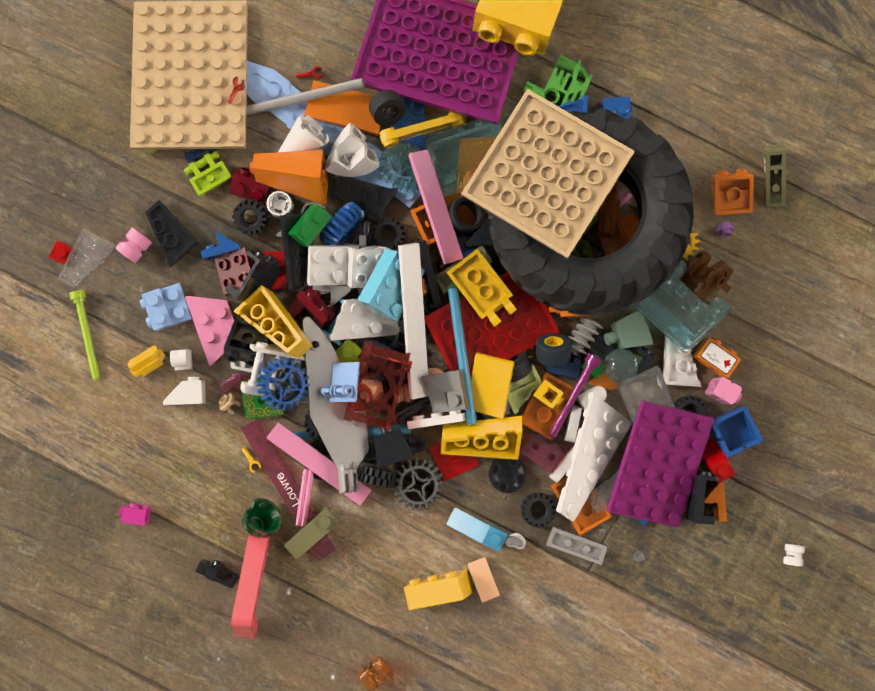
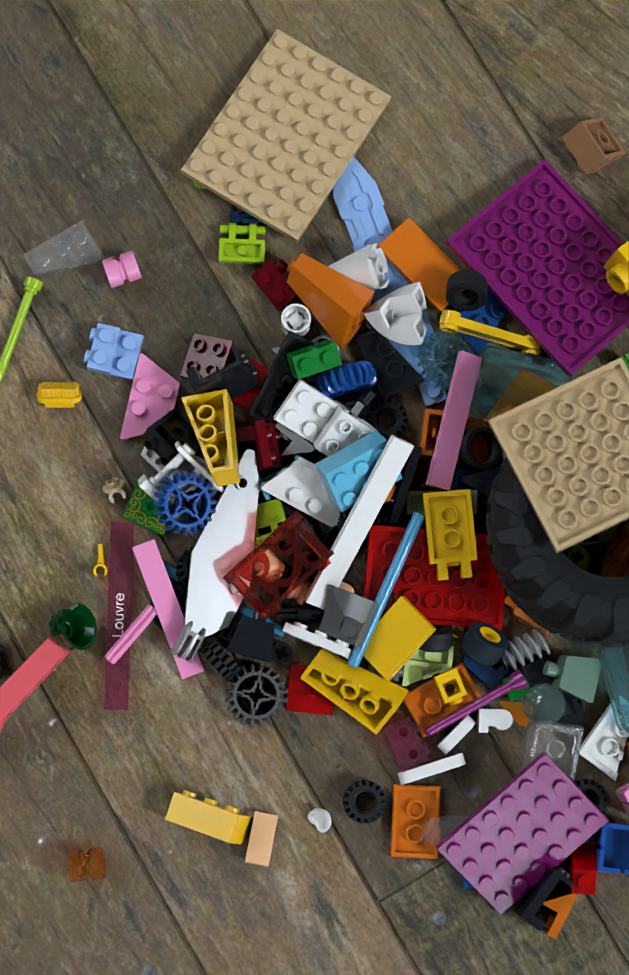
camera: 25 degrees right, 5 degrees down
(60, 252) = (43, 230): red plate -> none
(172, 235) = (166, 281): black wing -> none
(181, 359) = (95, 414): white leg -> none
(187, 393) = (80, 452): white slope -> none
(225, 246) = (213, 328): blue slope -> none
(231, 381) = (131, 468): clear pink pin -> none
(240, 87) = (324, 178): clear red hand -> none
(243, 224) = (271, 313): black tyre -> none
(305, 96) = (390, 228): light grey piece -> none
(311, 73) = (410, 209): red hand -> none
(312, 533) = (115, 675): olive slope -> none
(343, 383) = (246, 540): light blue hinge -> none
(477, 529) = (288, 780): slope -> none
(507, 475) = (355, 744): black dish -> none
(576, 545) = (381, 865): light grey plate -> none
(592, 451) = (459, 775): white wing -> none

